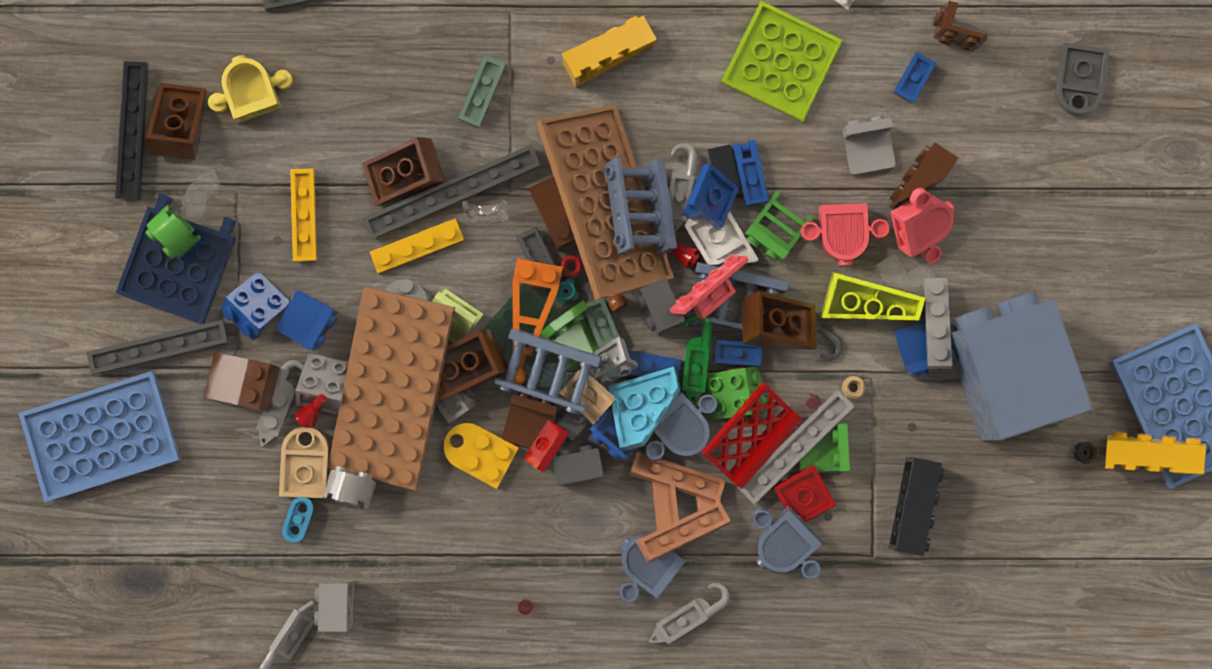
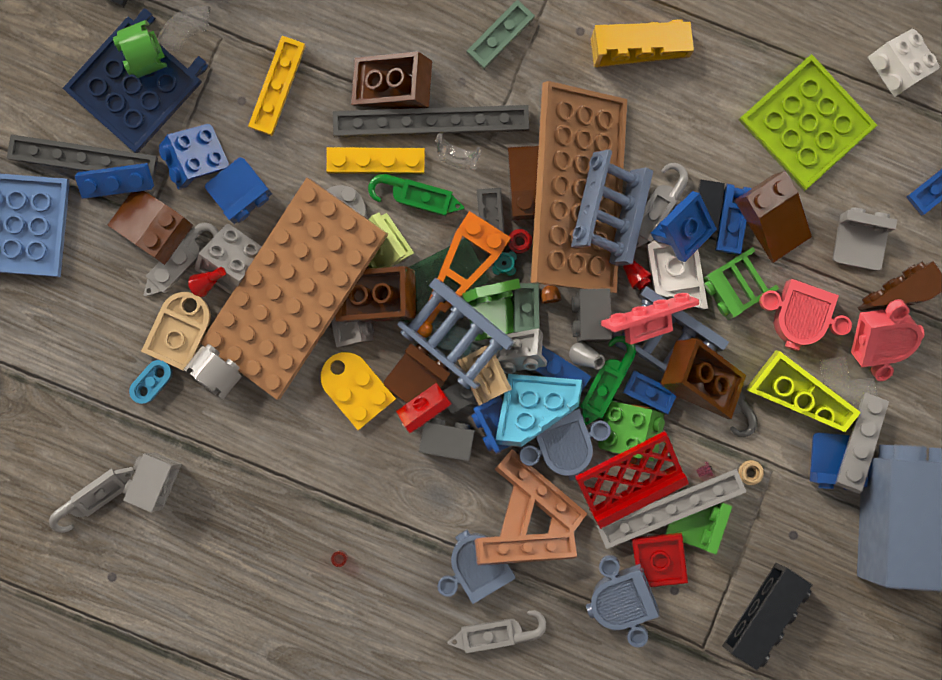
camera: 20 degrees right, 0 degrees up
(194, 356) = (114, 180): none -> blue plate
(465, 262) = (417, 195): none -> green plate
(668, 344) = (586, 356): none -> light grey cone
(785, 155) = (775, 215): none -> reddish brown slope

